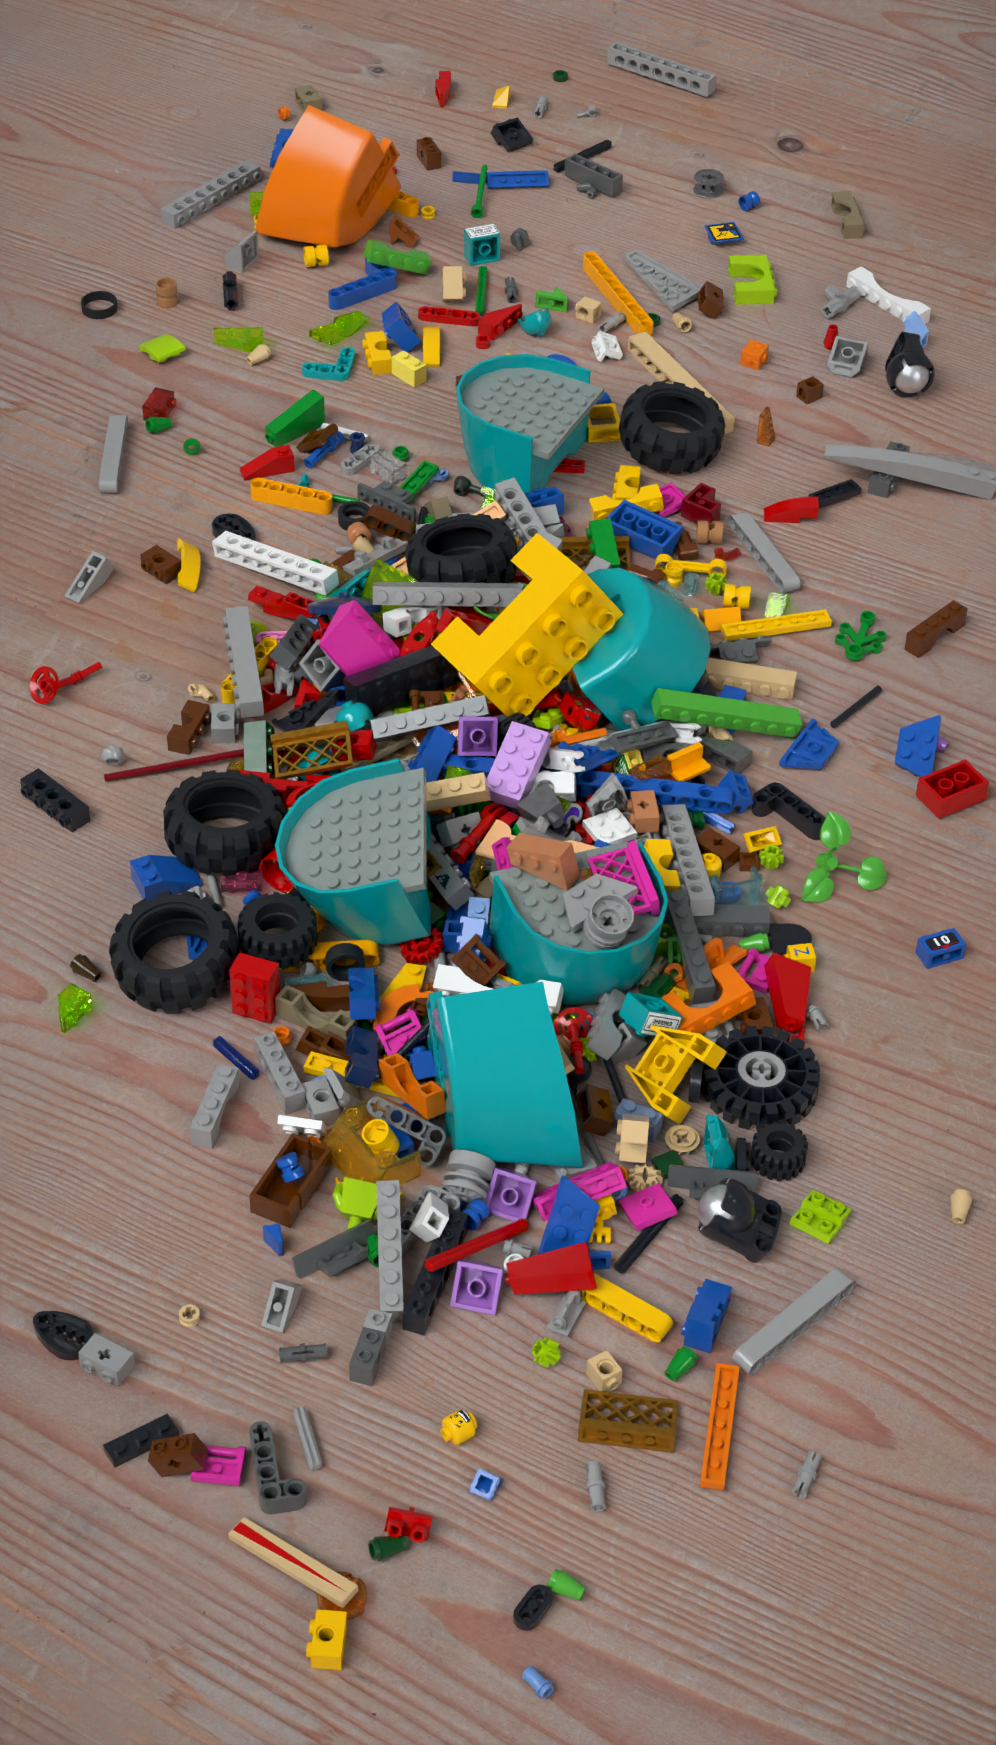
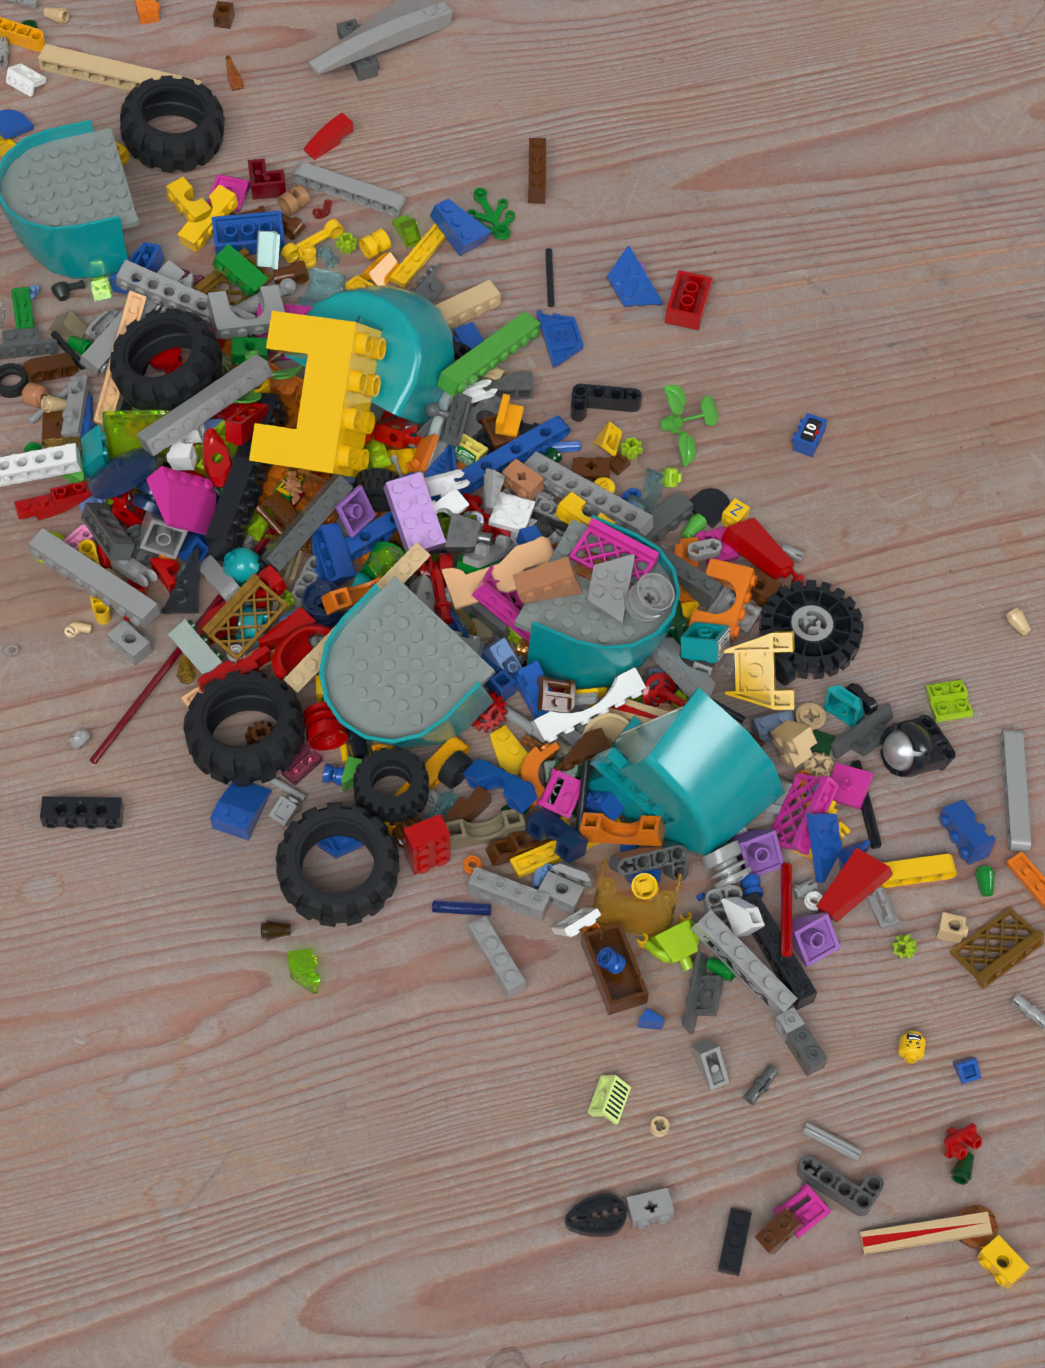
camera: 45 degrees left, 15 degrees up
(177, 1266) = (609, 1098): none -> yellowish green panel
(194, 720) = (102, 654): reddish brown arch -> none
(642, 545) = (268, 249): none -> light aqua panel
(652, 768) = (491, 430): clear orange slope -> none
(739, 785) = (548, 408): blue hinge -> none
(739, 960) = (704, 550): none -> light grey beam
(779, 1164) = (886, 663): black tyre -> none
(817, 624) = (459, 227): none -> blue wedge
(836, 493) = (341, 98): black plate -> none

